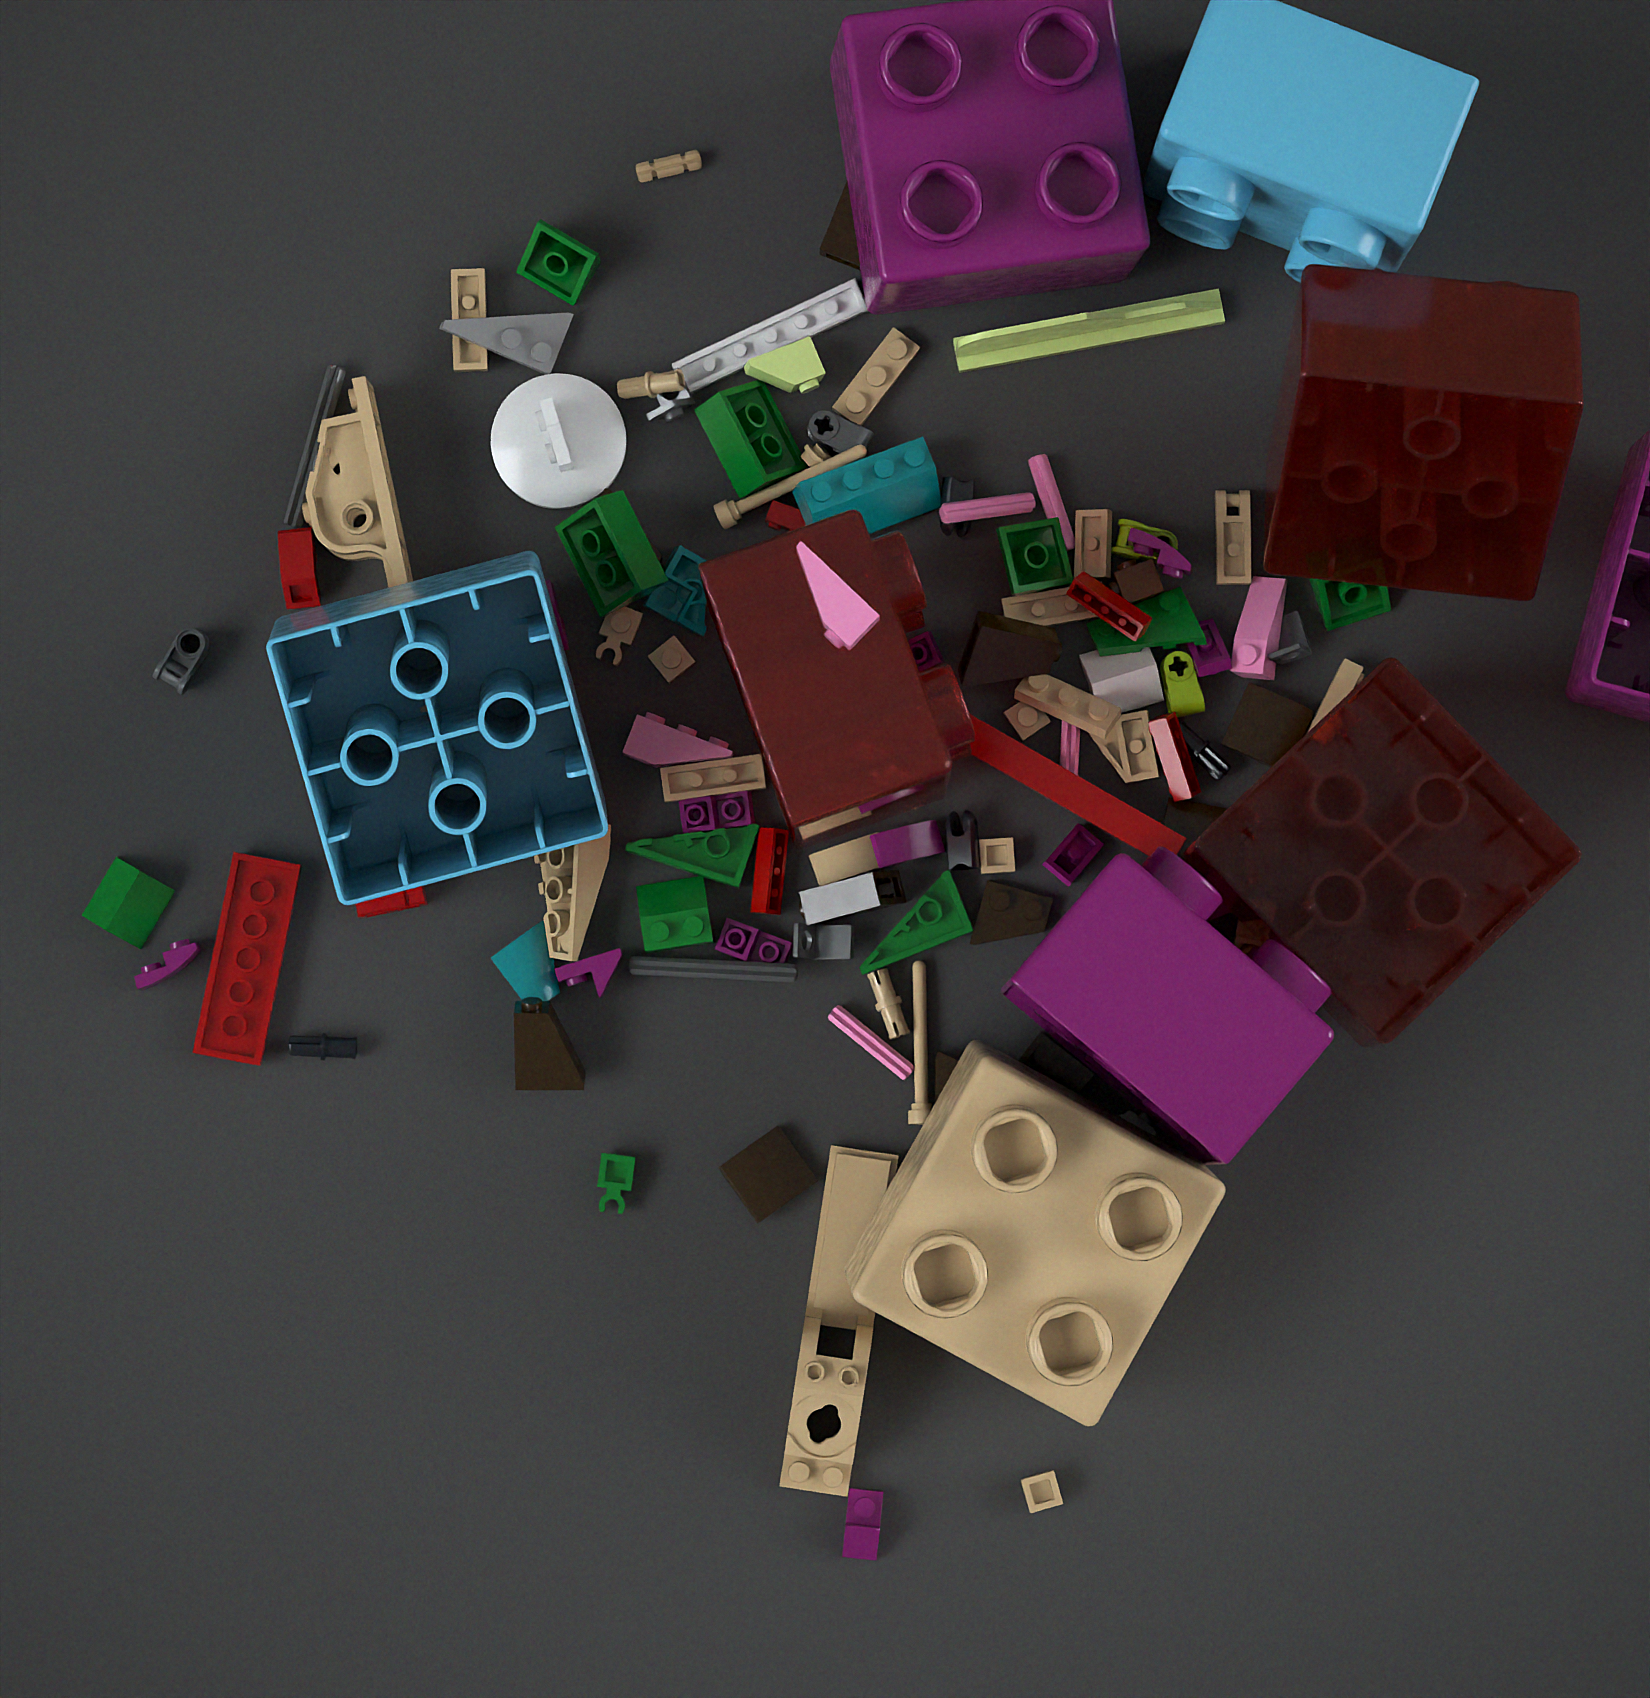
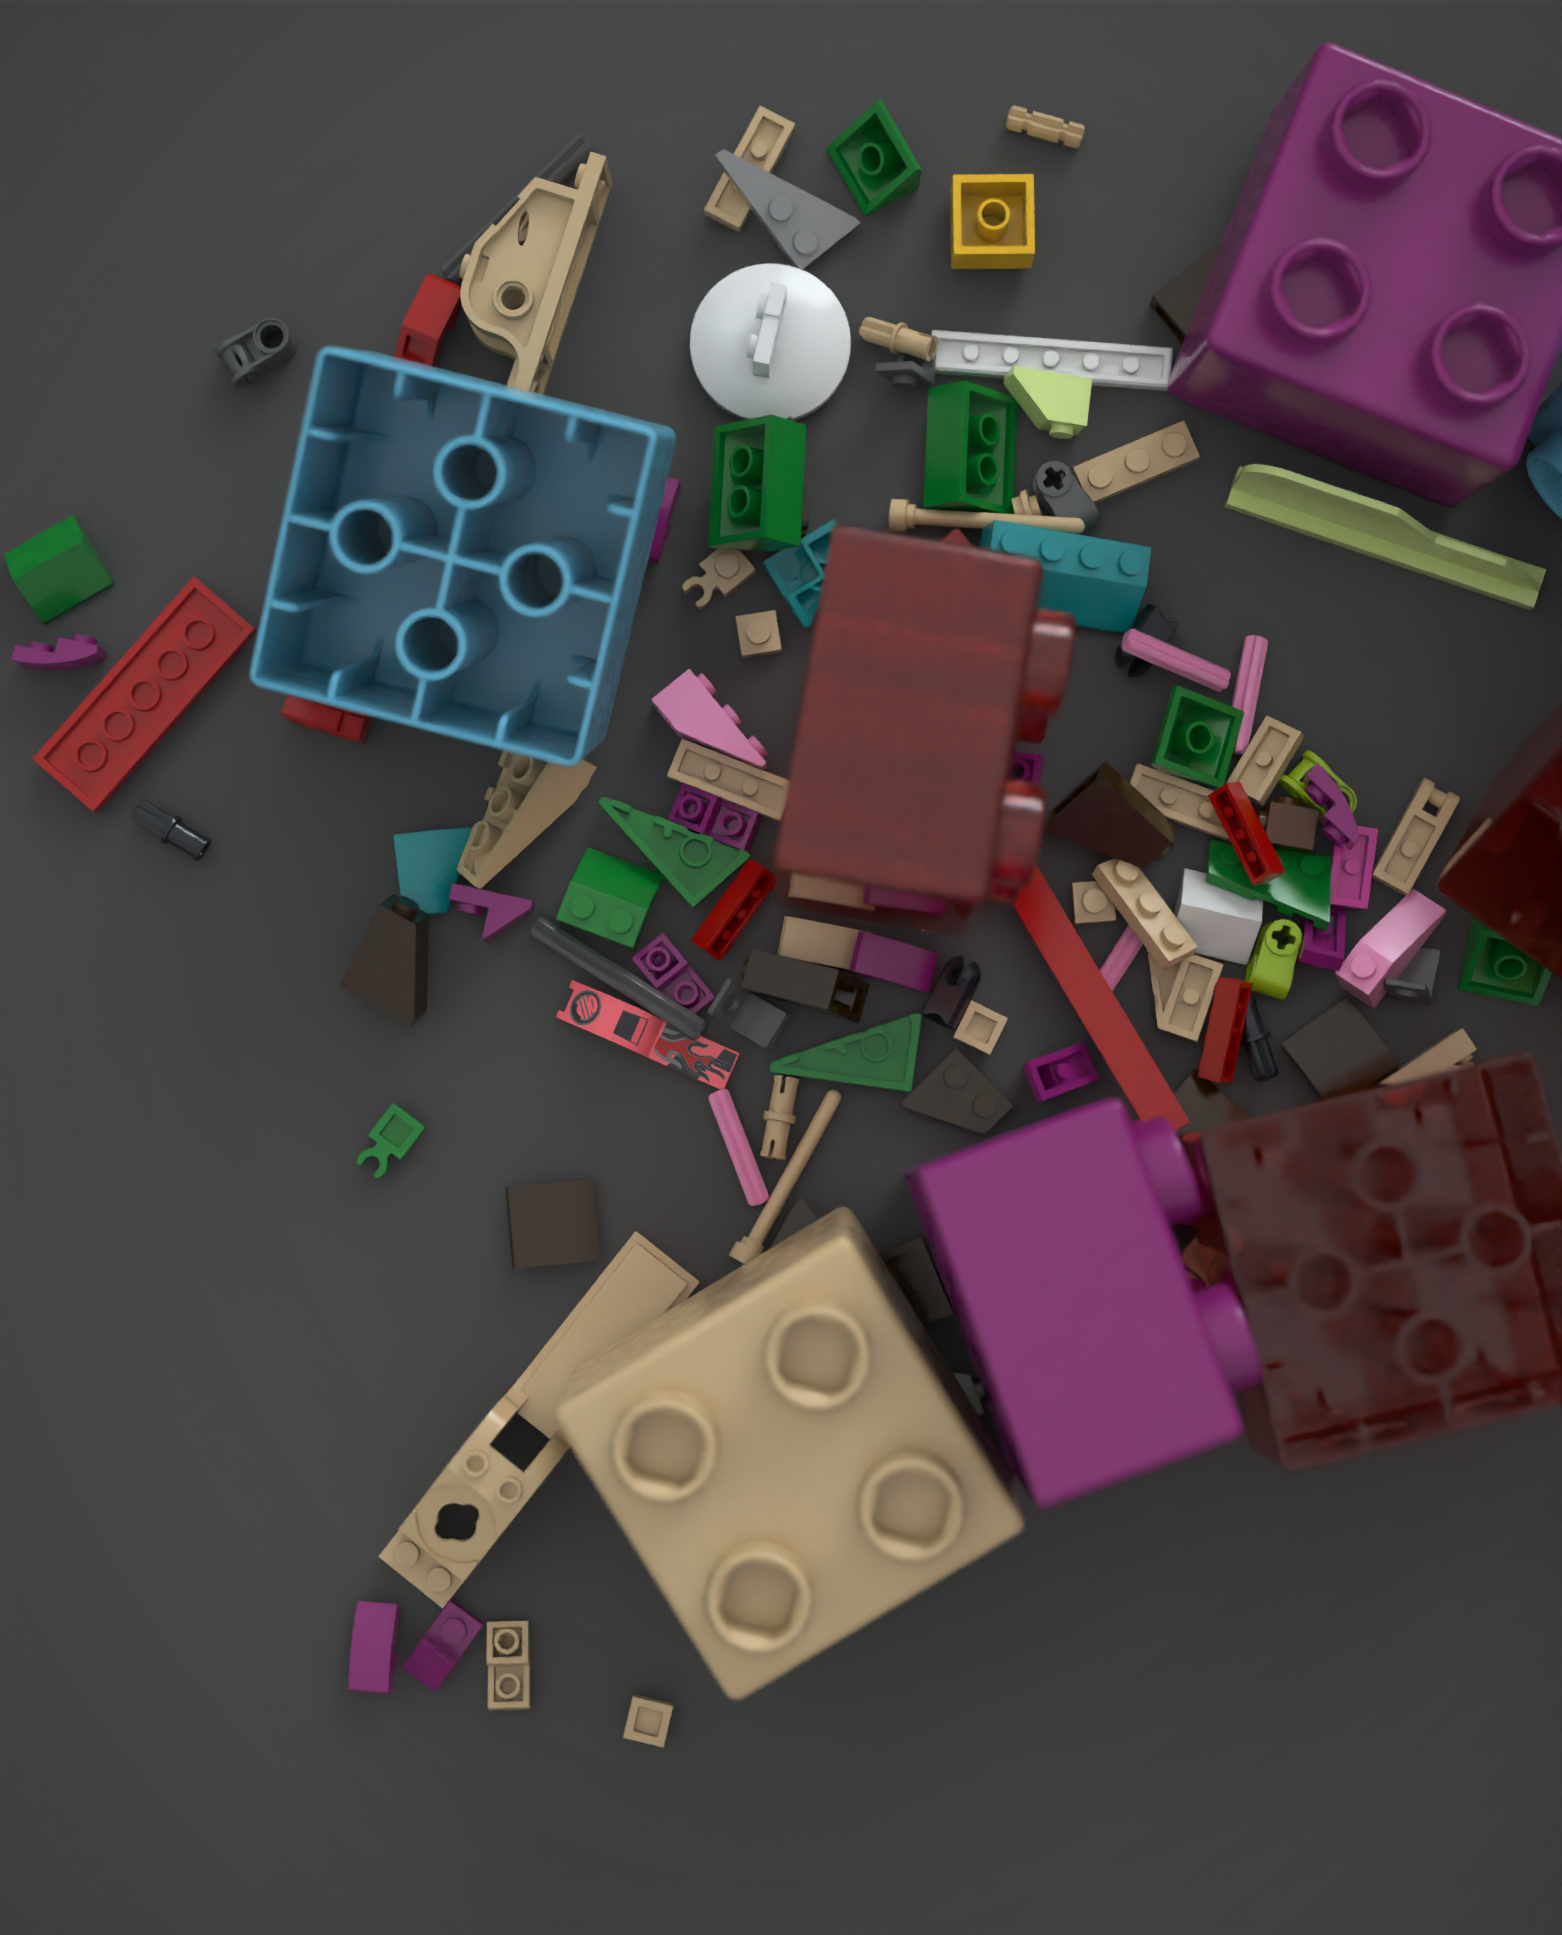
camera: 30 degrees right, 0 degrees up
(671, 260) = (992, 221): none -> yellow brick
(759, 998) = (648, 1035): none -> piece
(813, 1552) = (372, 1647): none -> magenta slope
(839, 607) = (962, 655): bright pink slope -> none
(918, 1510) = (508, 1665): none -> tan slope
(1202, 588) = (1353, 871): none -> dark pink plate

